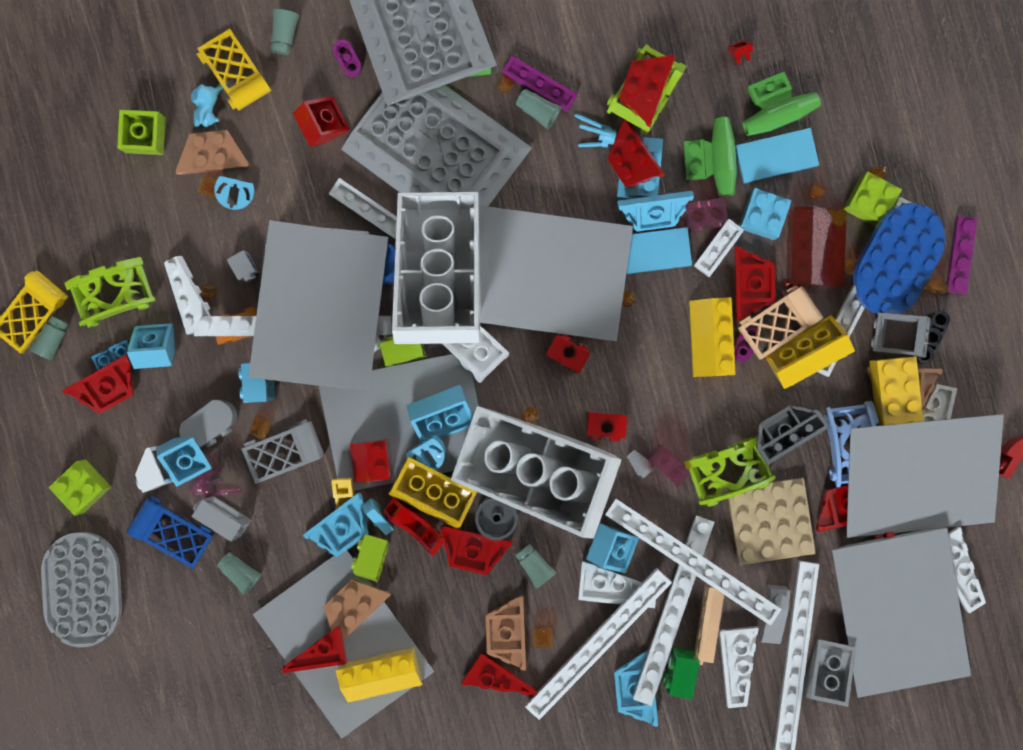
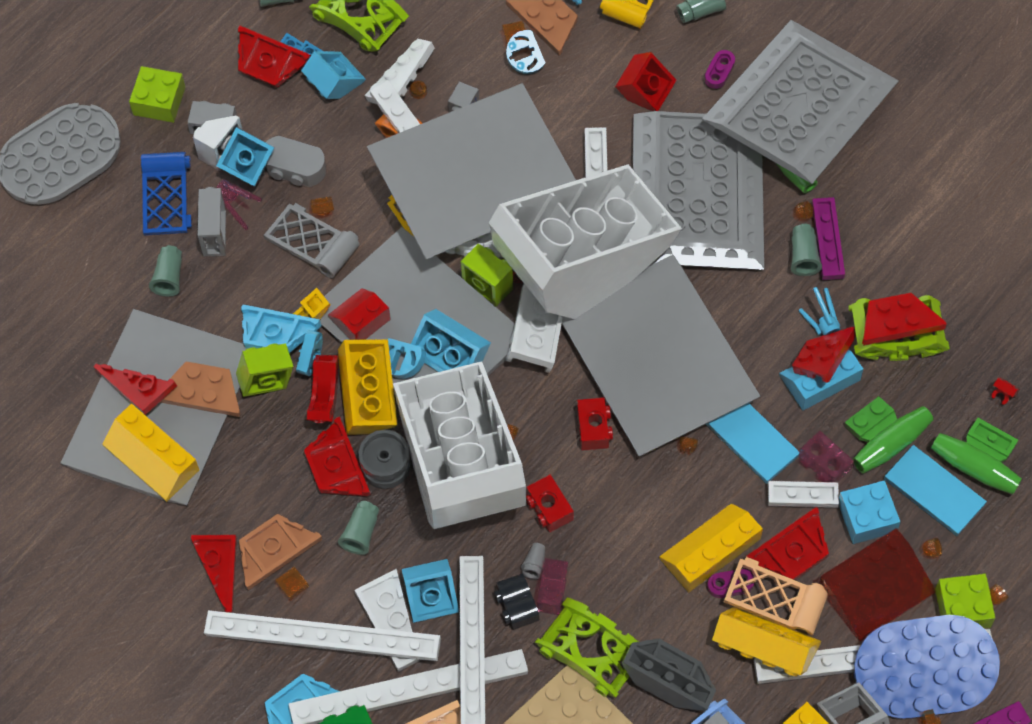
camera: 60 degrees right, 25 degrees down
(126, 462) = (206, 111): none -> light grey brick
(254, 388) = (360, 176): medium azure brick -> none
(655, 211) = (790, 408): medium azure wing -> none
(661, 495) = (517, 601): none -> black brick

